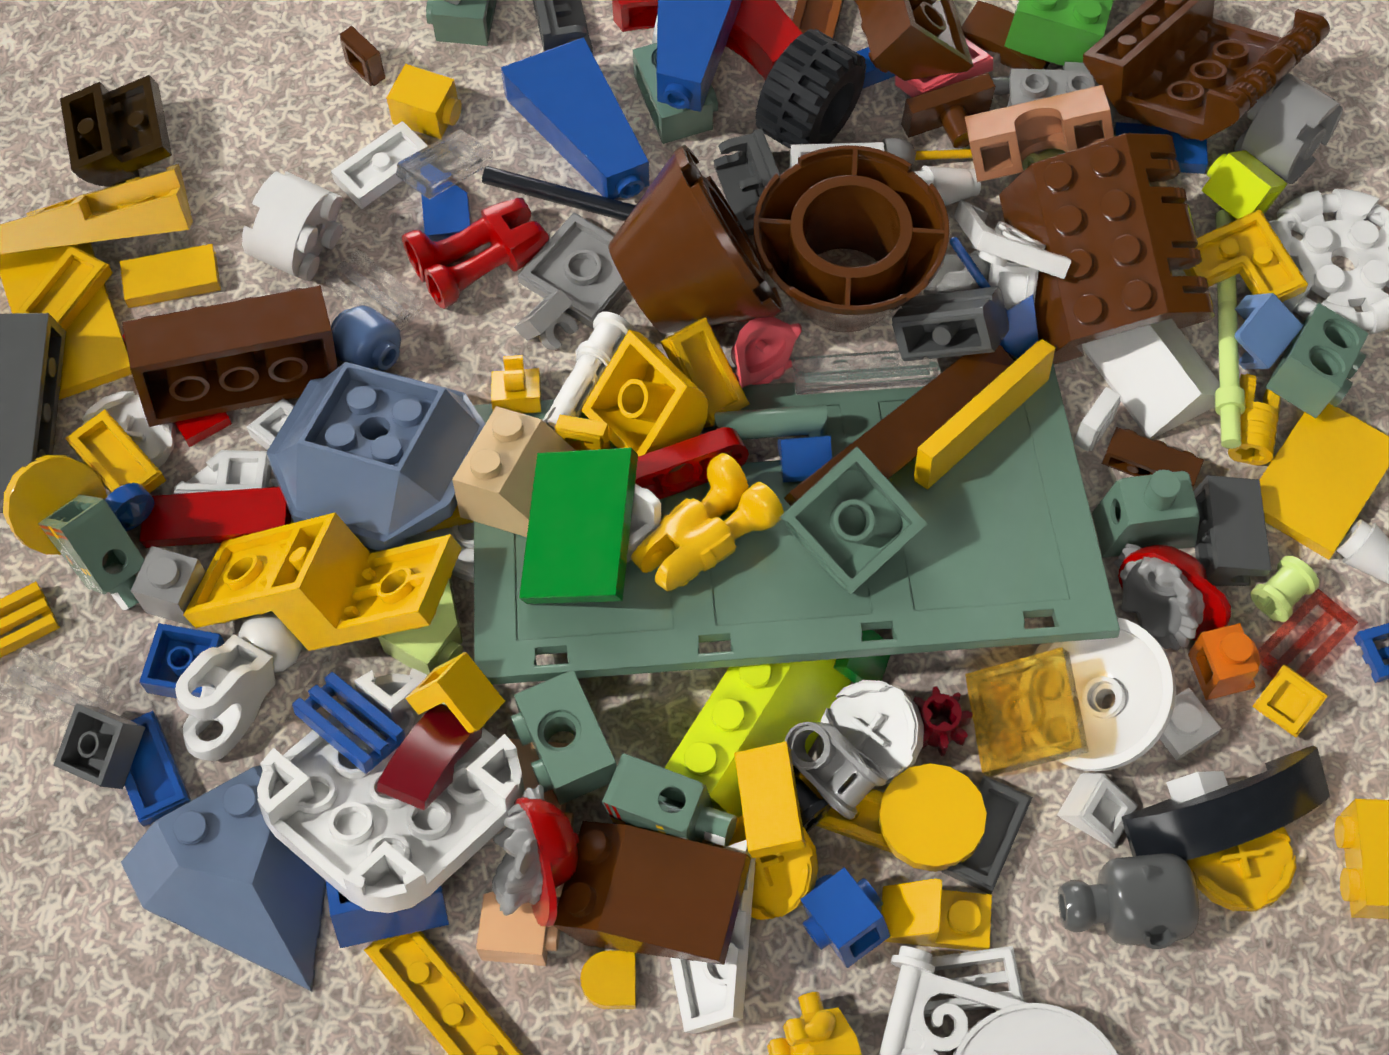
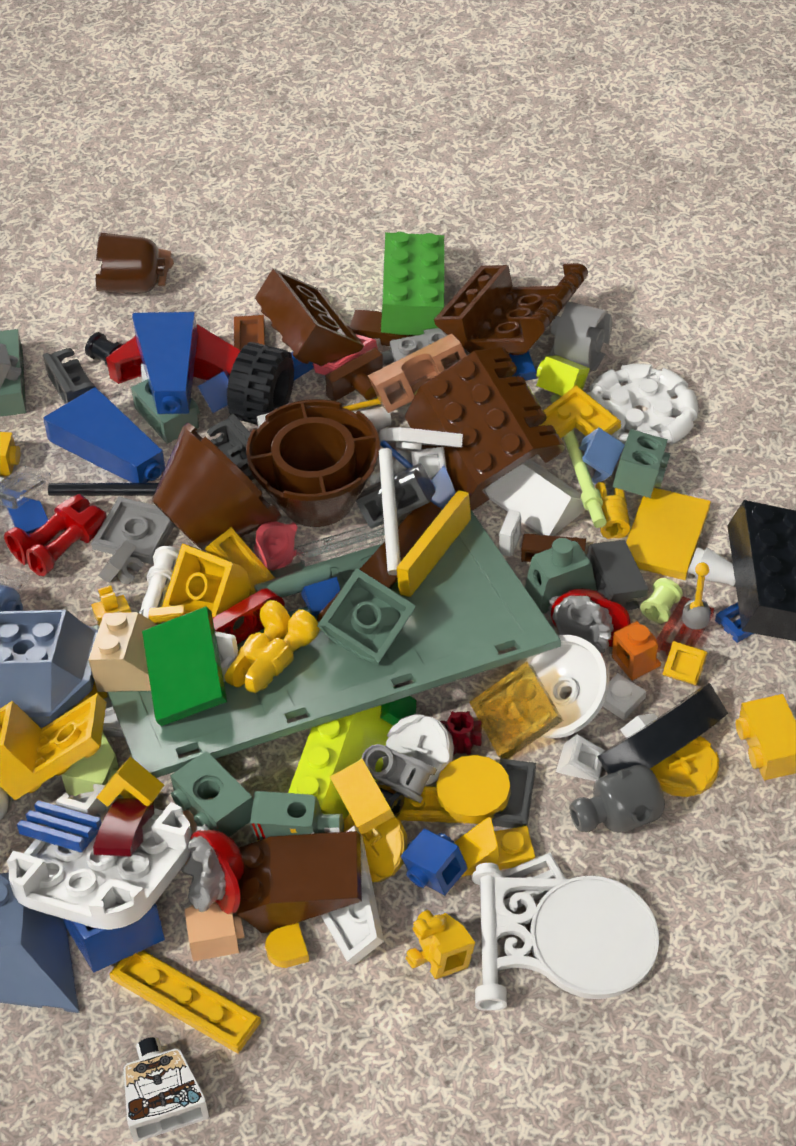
camera: 15 degrees left, 15 degrees down
(747, 82) = (215, 391): none -> blue tile
(933, 353) = (389, 510): none -> white bar
(1336, 620) = (696, 611): none -> hinge

